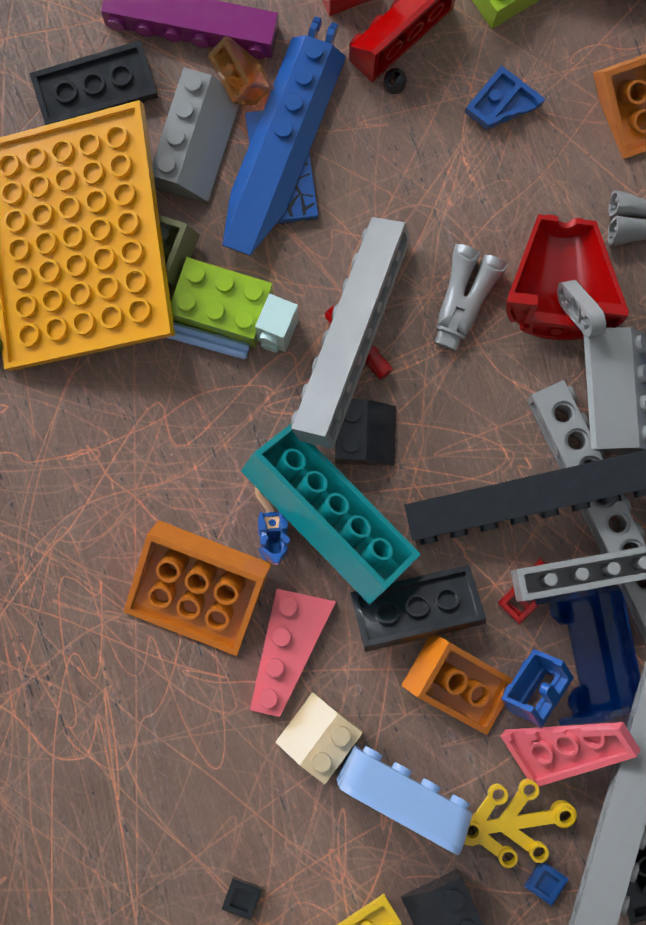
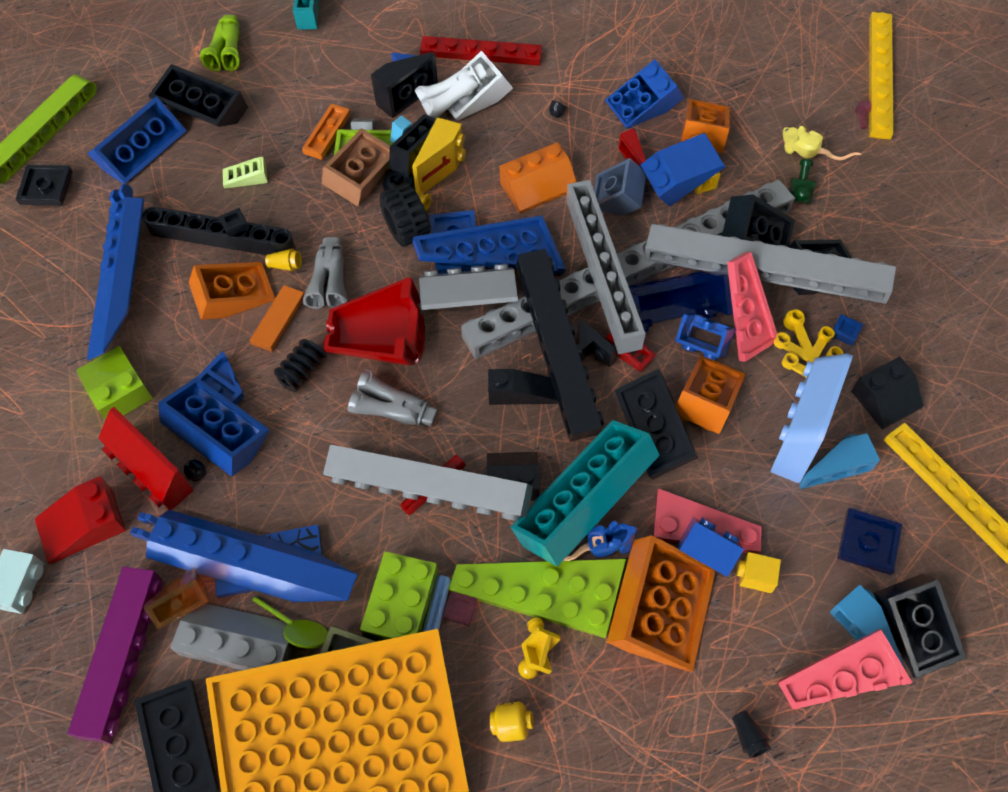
camera: 90 degrees left, 20 degrees down
(49, 661) = (751, 737): none -> black cone
(85, 412) = (511, 721): none -> yellow head
(100, 780) = (851, 670): none -> coral wing
(150, 877) = (921, 624): none -> black slope
(155, 816) = (862, 615): none -> dark azure slope
(157, 444) = (536, 650): none -> yellow piece
(194, 201) = (298, 632): none -> lime piece
(212, 367) = (460, 608): none -> clear pink tile
(215, 493) = (570, 595): none -> lime wing
(223, 702) = (759, 572): none -> yellow brick
(242, 898) = (916, 548): black tile -> none
(253, 649) = (711, 546): none -> blue brick
(253, 843) = (869, 541): none -> clear blue plate
(276, 323) = (421, 542): light aqua brick -> none
(319, 738) = (773, 492): tan slope -> none
(358, 837) = (849, 458): none -> dark azure slope
(445, 94) = (213, 425): none -> blue slope
(477, 447) = (519, 387): none -> black slope
(522, 189) = (297, 364): none -> black piece
(539, 539) = (594, 343): none -> black slope
(581, 308) = (415, 300): light grey beam -> none
(594, 162) = (277, 318): none -> orange tile

